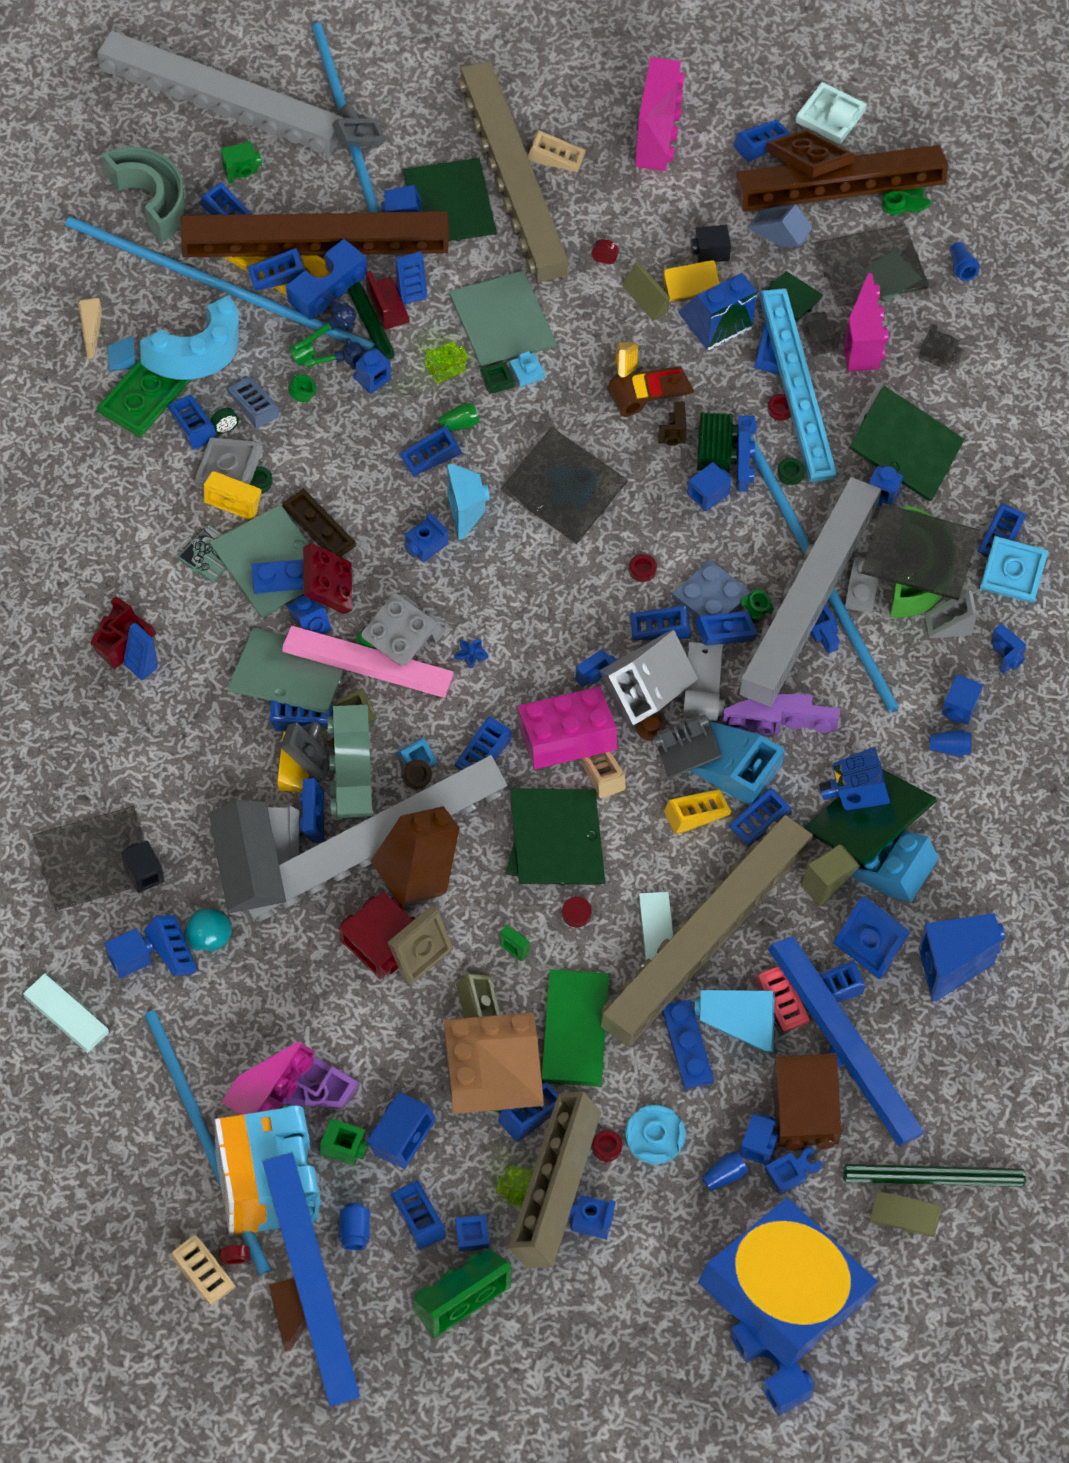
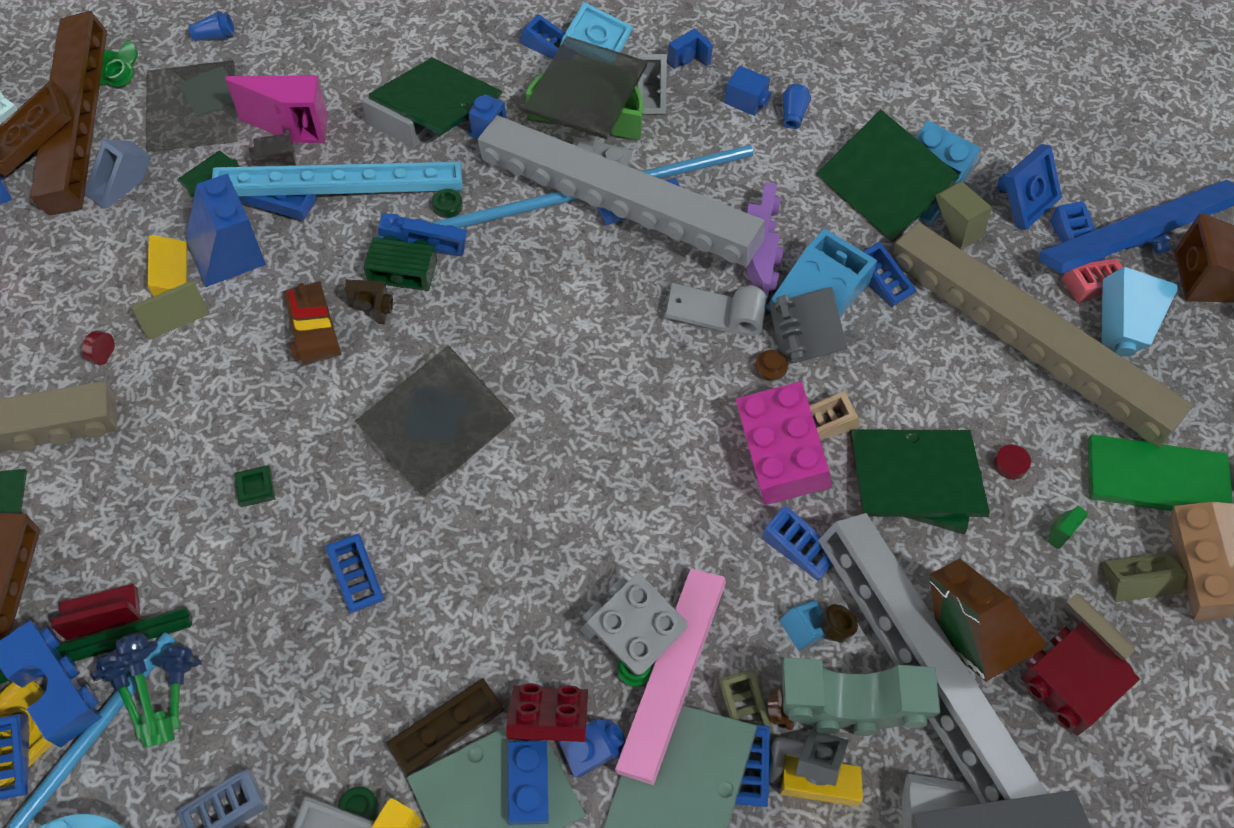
camera: 85 degrees left, 0 degrees up
(302, 388) = (216, 735): green tile -> none
(313, 810) = (917, 760): blue plate -> none
(369, 366) = (212, 635): blue brick -> none
(411, 281) = (76, 570): blue slope -> none
(425, 547) = (496, 599): blue brick -> none
(446, 361) = (225, 548): clear neon green brick -> none
(460, 418) = (310, 531): green cone -> none
(466, 498) = (447, 532): medium azure slope -> none
(472, 652) = (659, 548): blue plant -> none
(502, 318) = (162, 475): sand green piece -> none
(527, 369) = (250, 451): medium azure tile -> none
(588, 670) = (695, 409): blue bracket -> none
(626, 358) = (269, 334): yellow slope -> none
(642, 568) = (556, 354): dark red tile -> none
(649, 677) = (727, 354): light grey slope -> none
(655, 921) = (1026, 385): light aqua tile -> none
(671, 614) = (636, 318): blue slope -> none
(682, 820) = (880, 350): yellow slope -> none
(687, 1044) = (1175, 366): blue plate -> none
(709, 486) = (460, 274): blue brick -> none
(710, 592) = (600, 291): sand blue plate -> none
(711, 243) = (122, 238): black brick -> none
(726, 628) = (652, 276): blue plate -> none
(763, 601) = (618, 248): green plate -> none
(778, 407) = (360, 204): dark red tile -> none
(857, 781) = (851, 177): blue torso -> none
(940, 349) = (319, 57): clear smoke brick -> none
(958, 951) = (1047, 114): blue slope -> none

